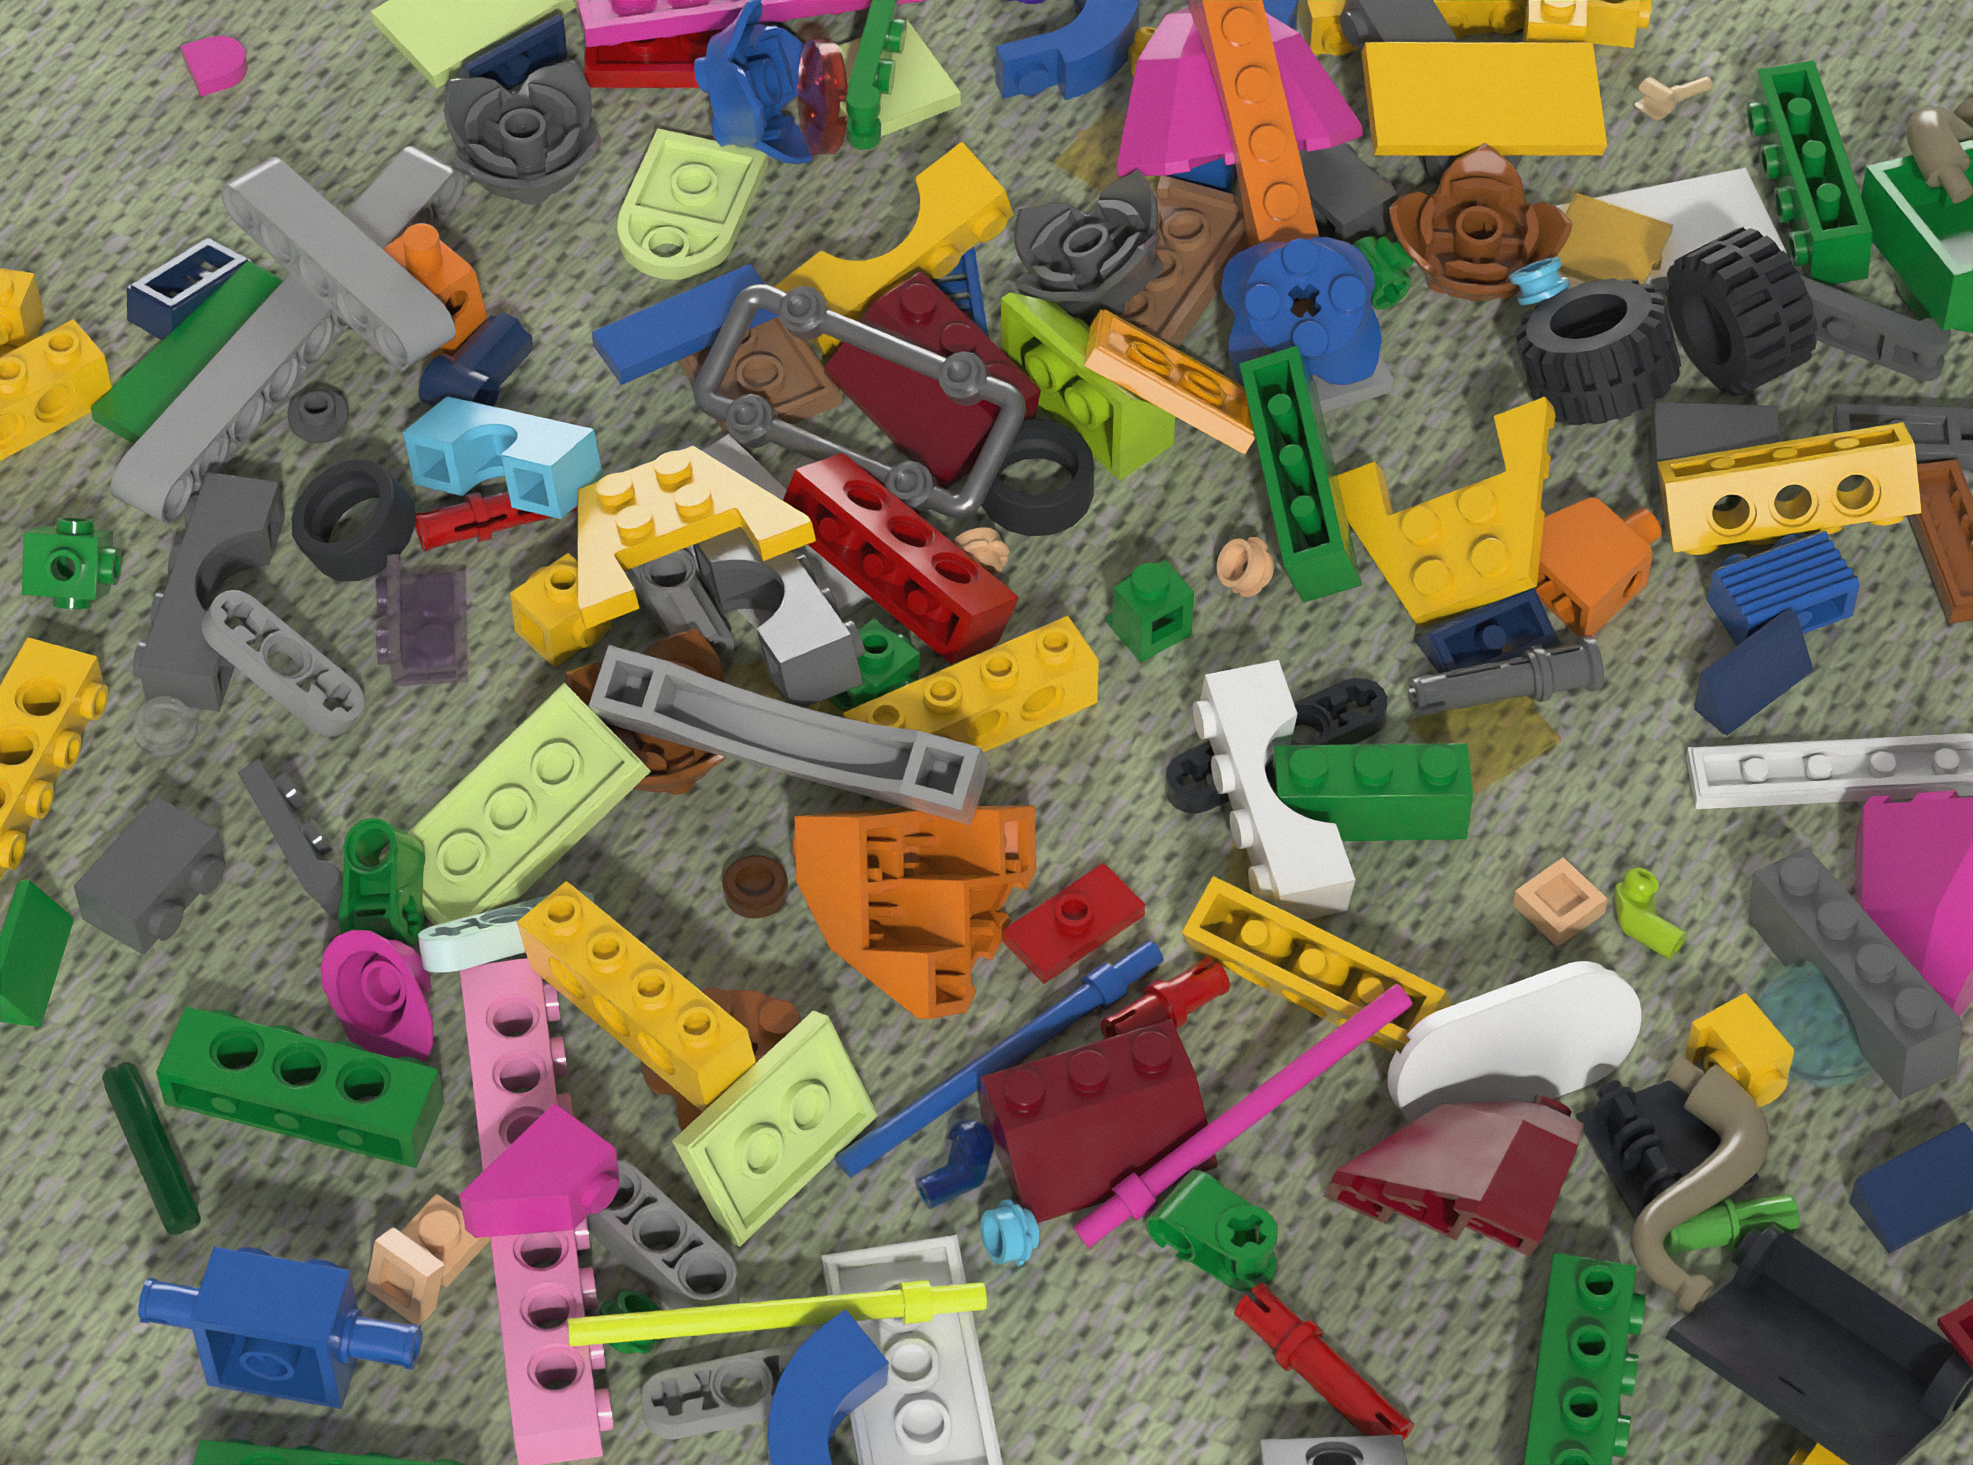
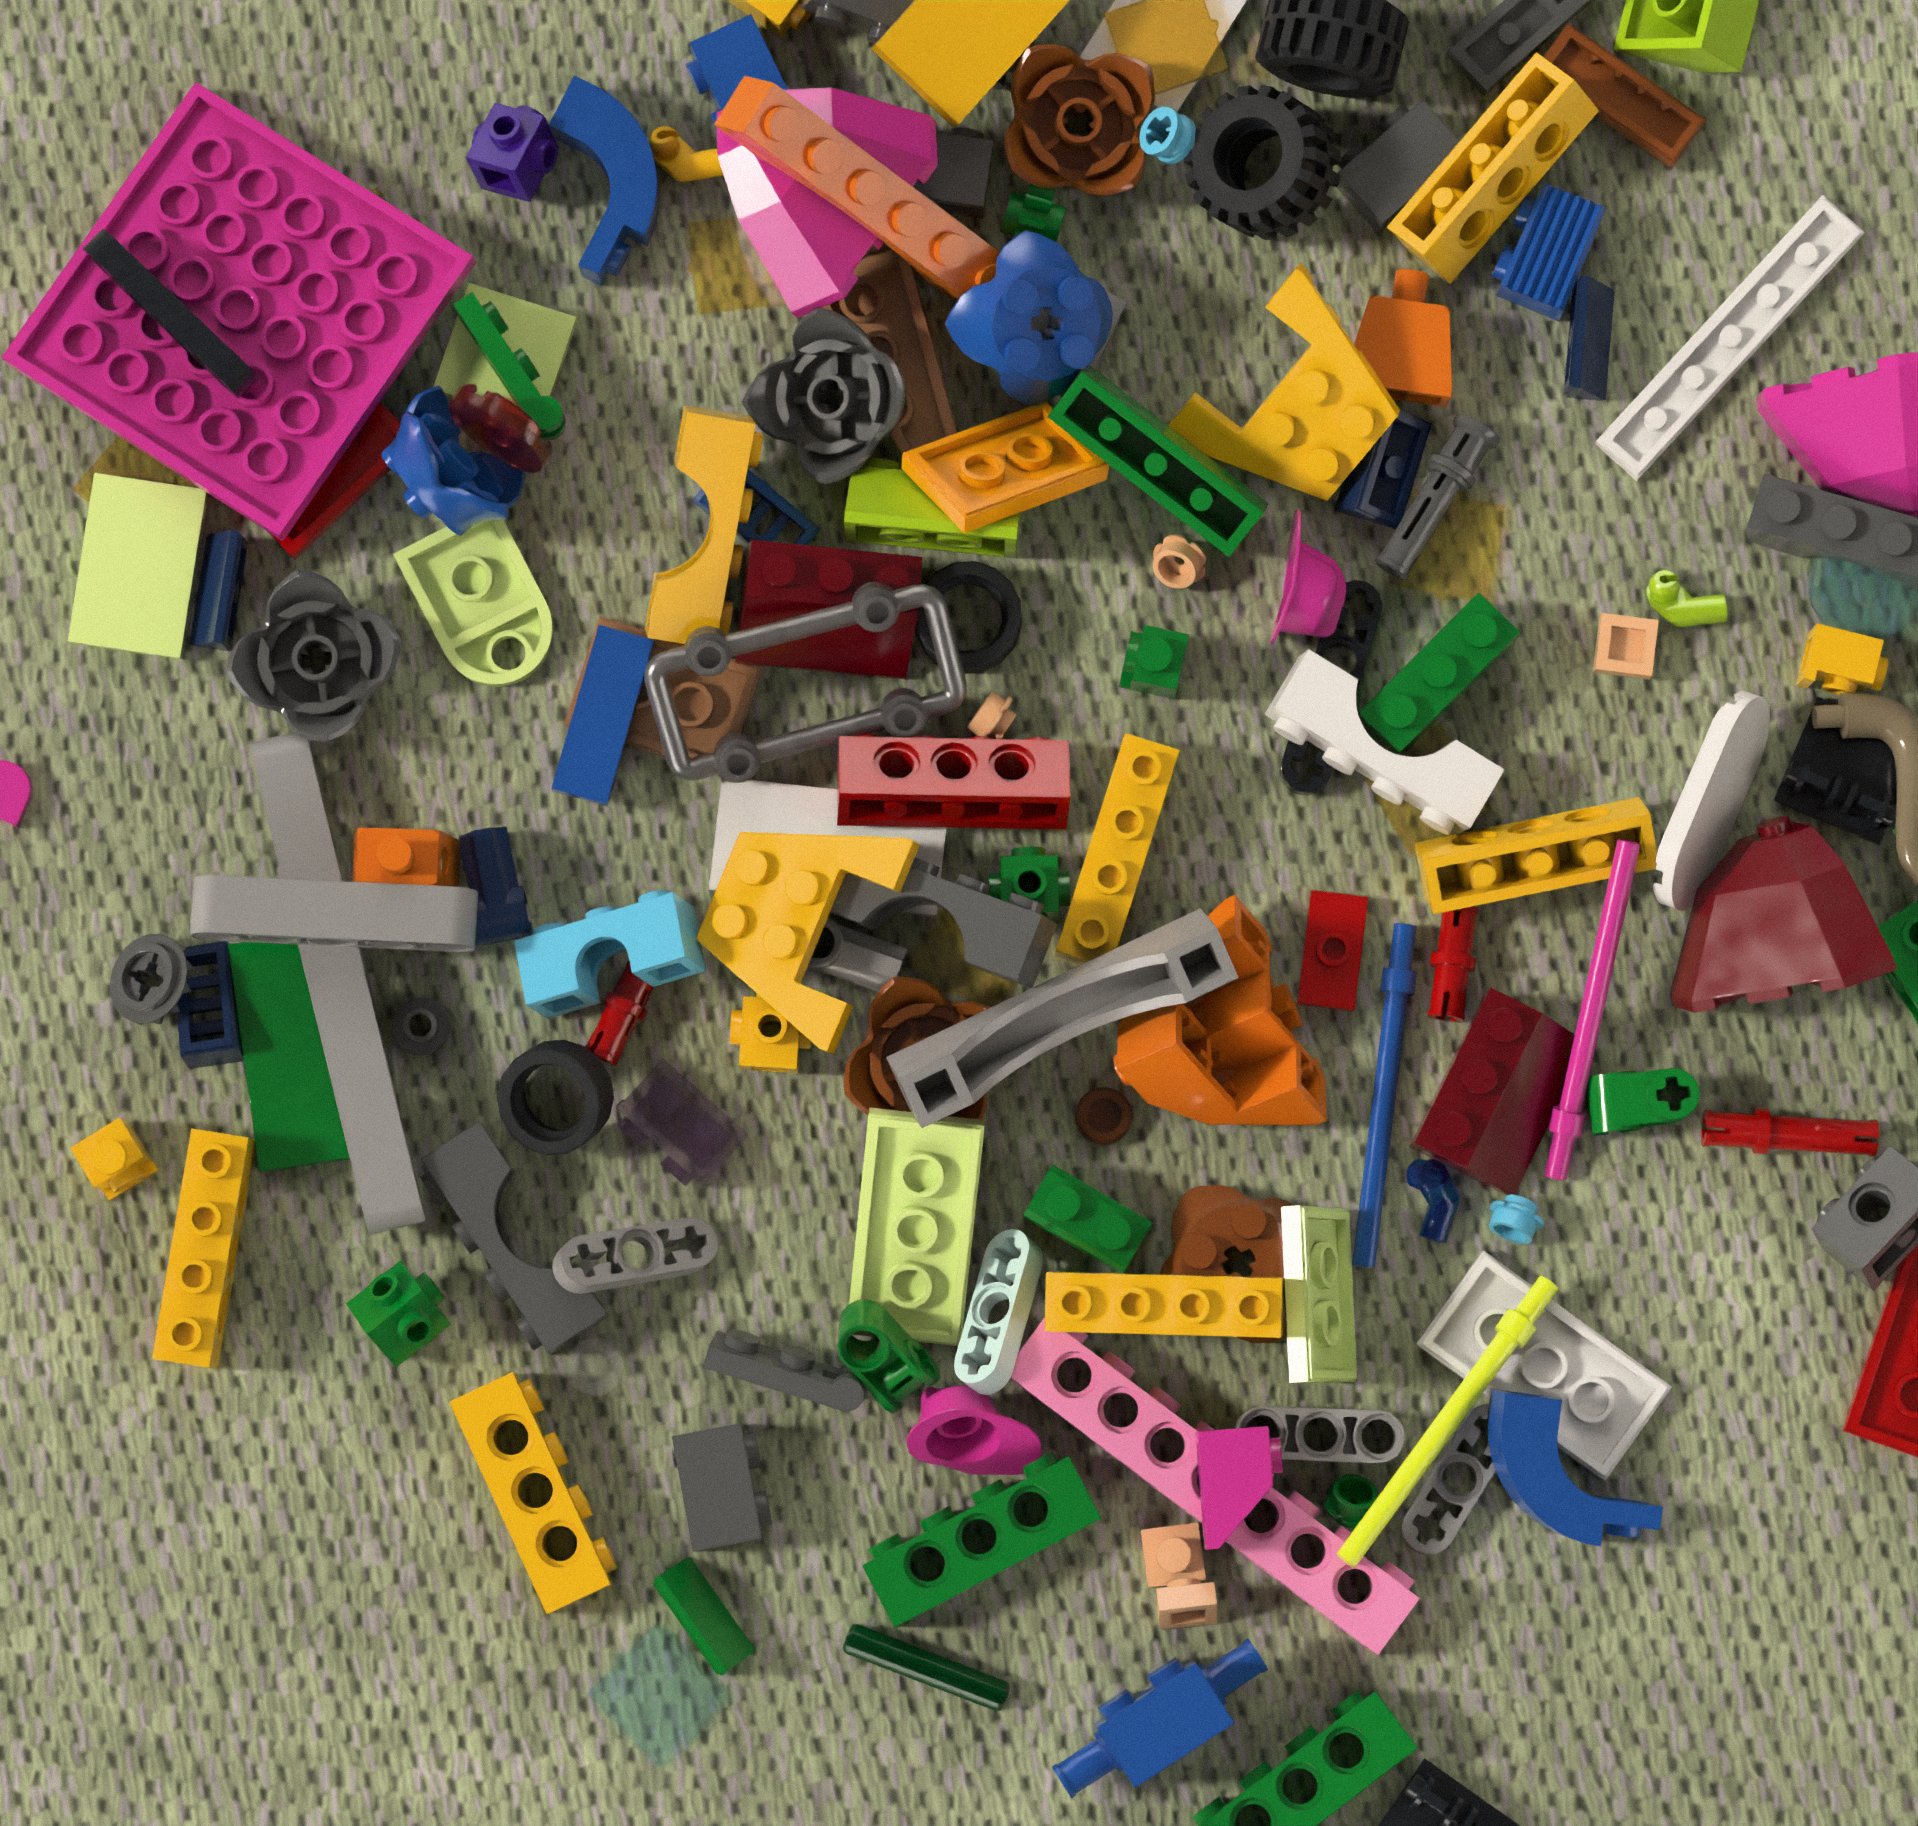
camera: 45 degrees left, 30 degrees up
(168, 233) = (145, 957): none -> dark grey gear
(651, 907) = (1087, 1219): none -> green brick
(1327, 643) = (1311, 592): none -> dark pink piece

